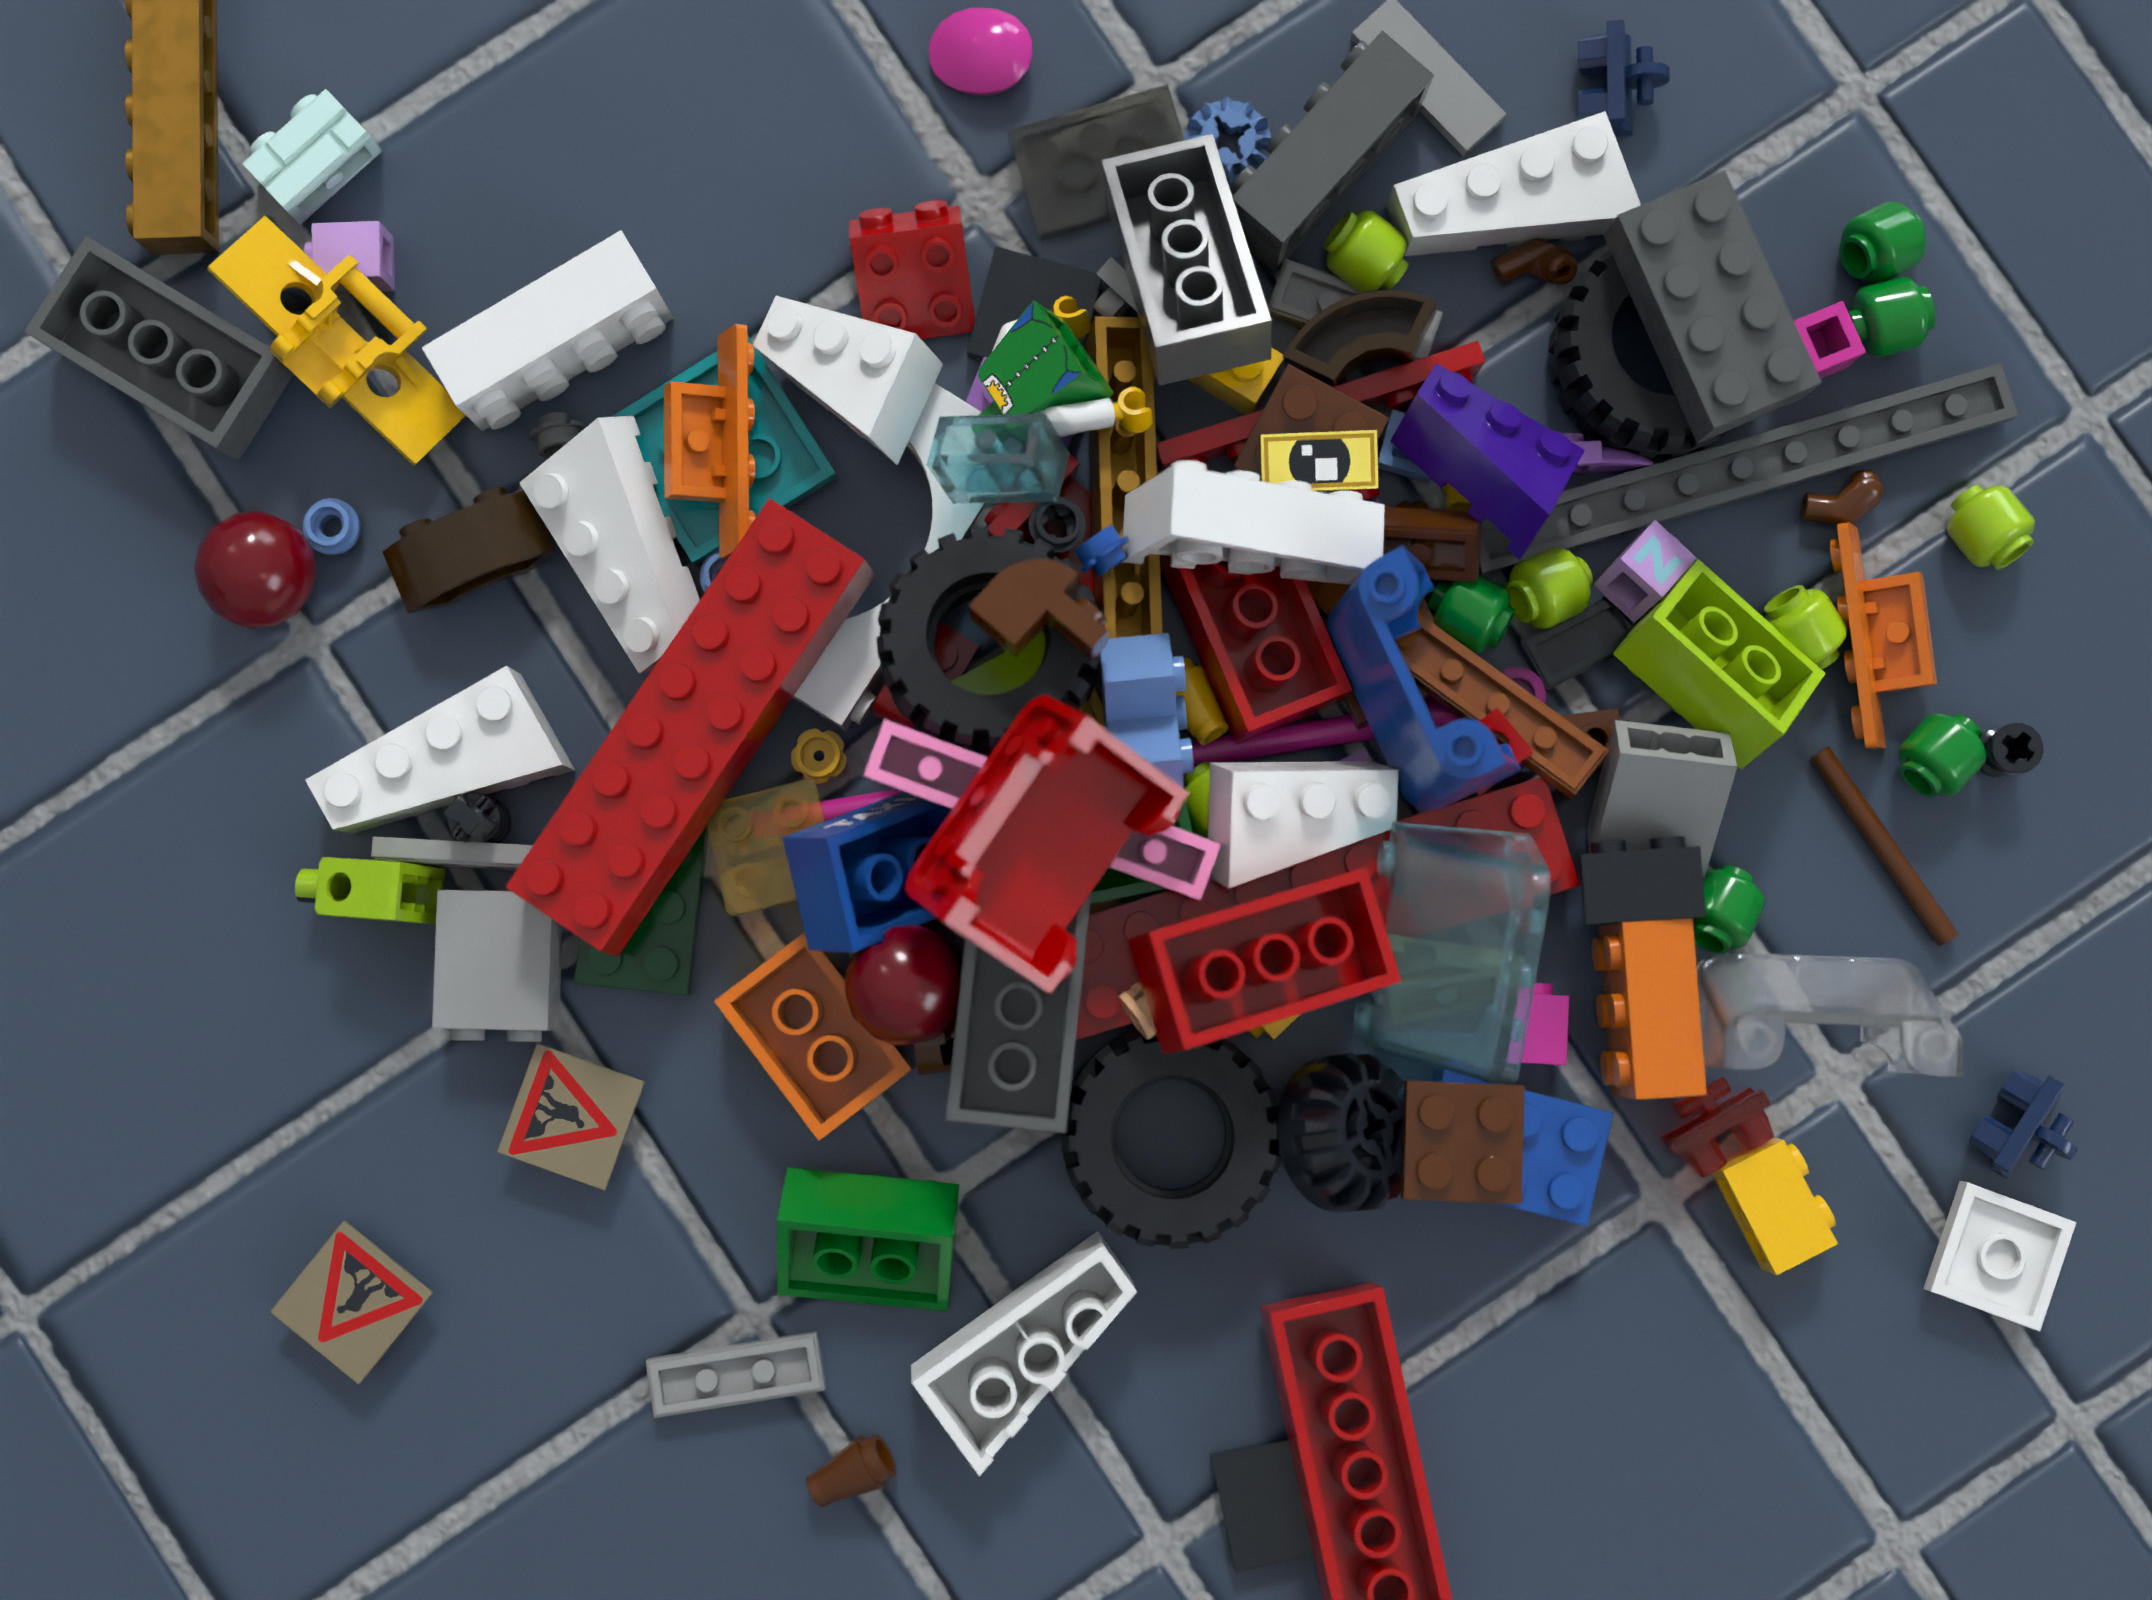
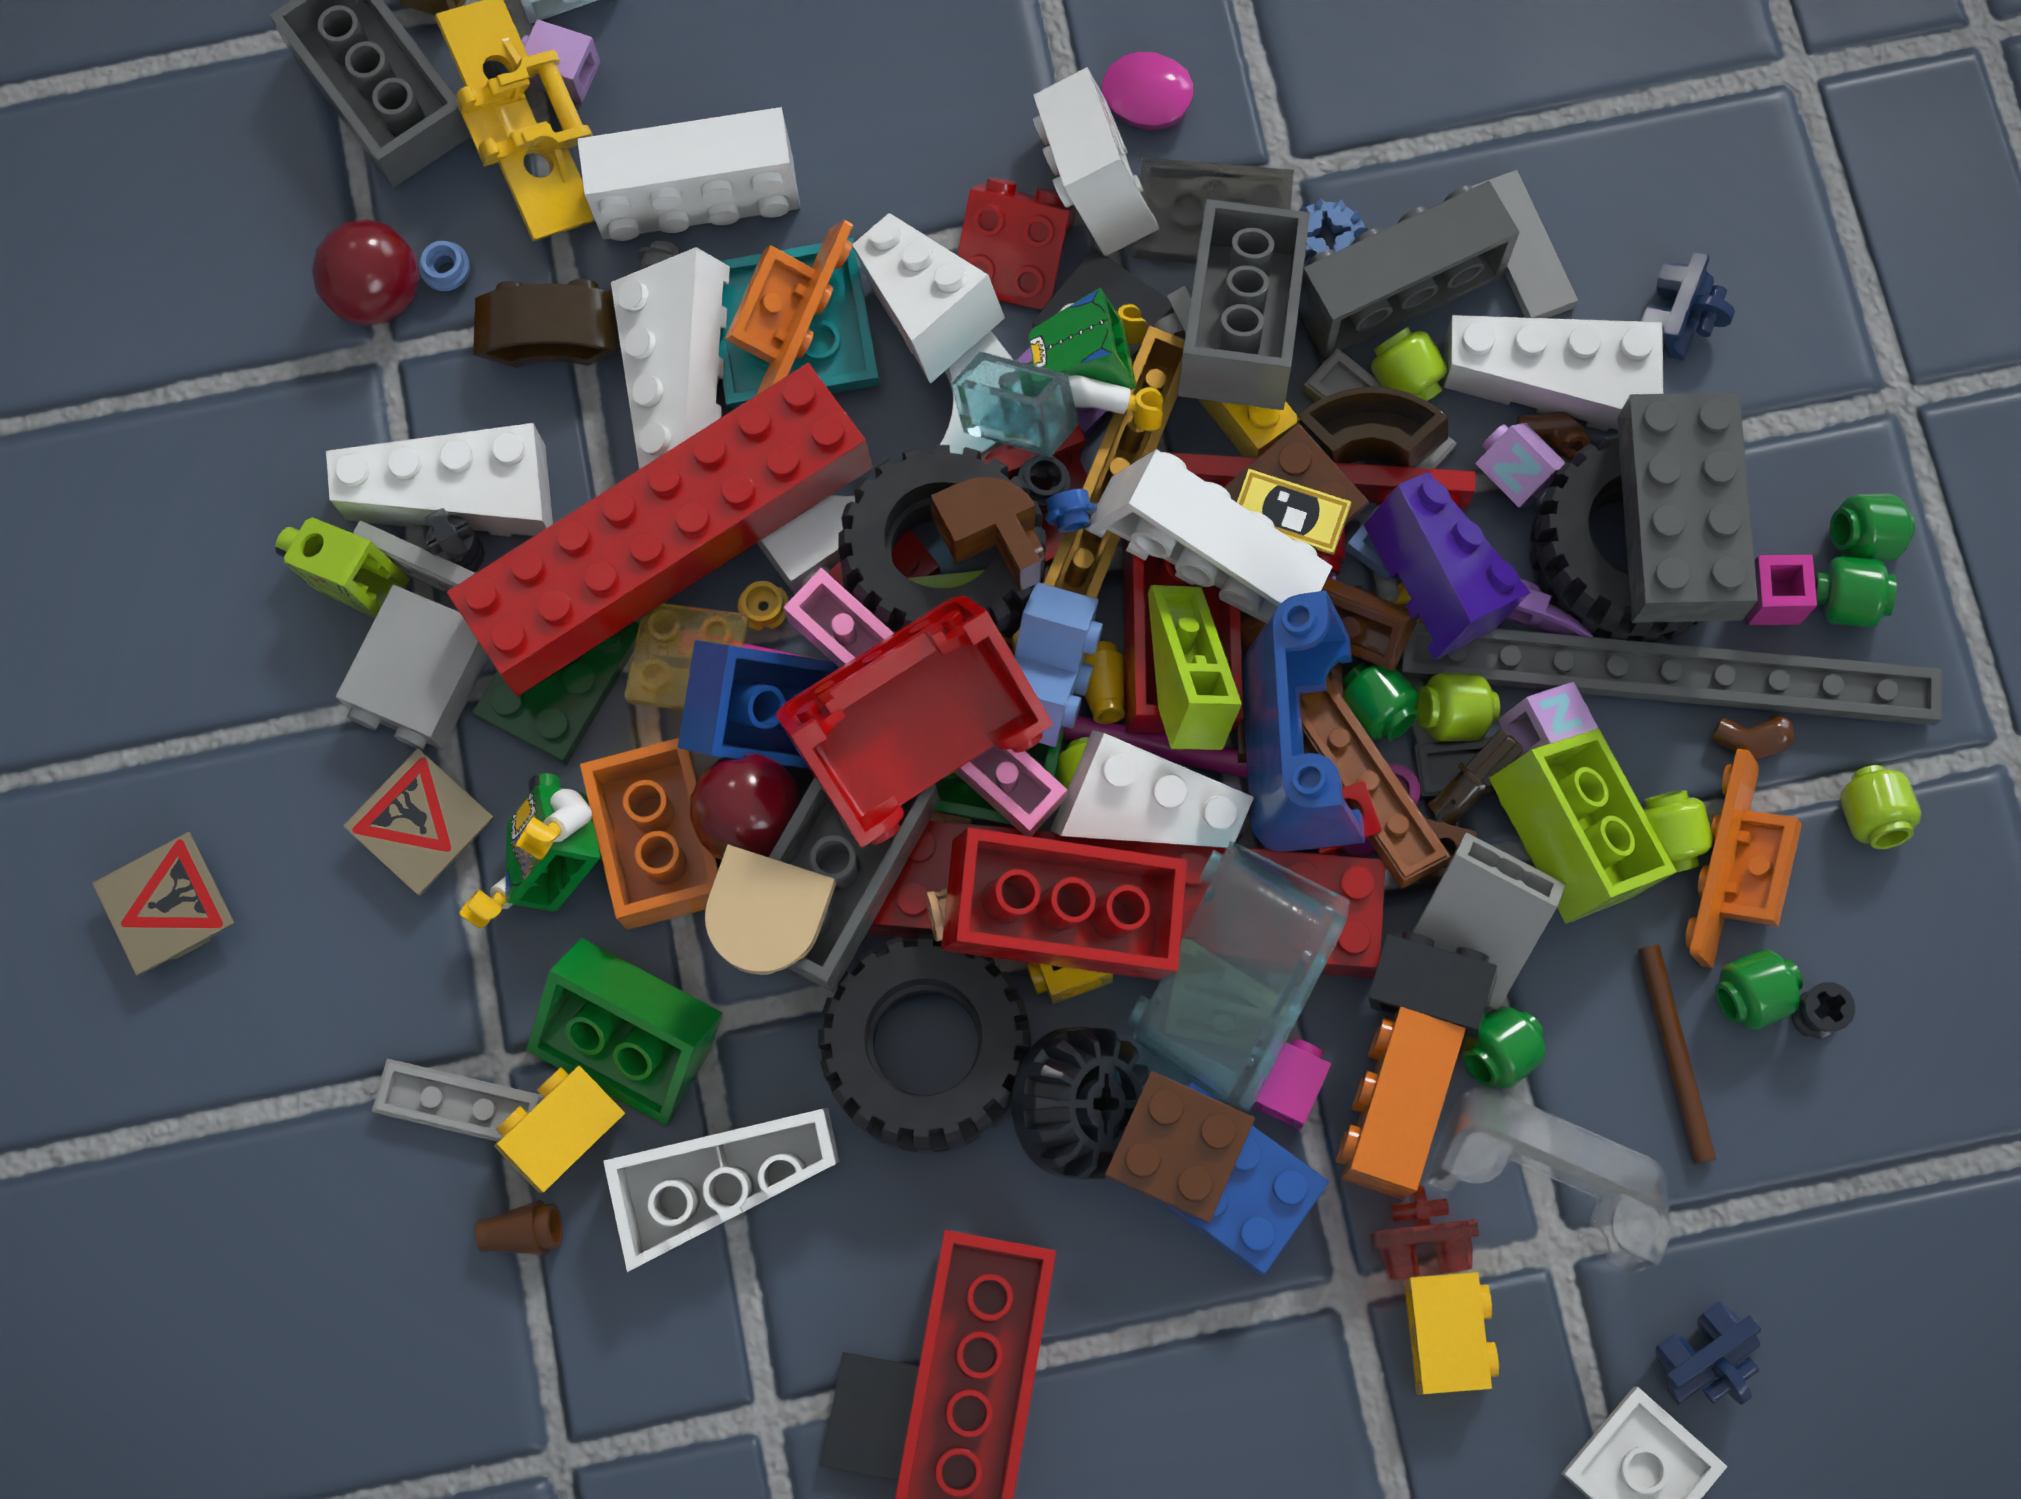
camera: 30 degrees right, 10 degrees down
(717, 1099) = (547, 852): none -> torso
(847, 1363) = (557, 1128): none -> yellow brick
(959, 156) = (1091, 162): none -> white wedge
(976, 1090) = (765, 911): none -> tan tile
(1287, 666) = (1191, 670): none -> lime slope
(1517, 312) = (1519, 463): none -> lavender brick
(1596, 654) = (1475, 775): none -> dark brown axle

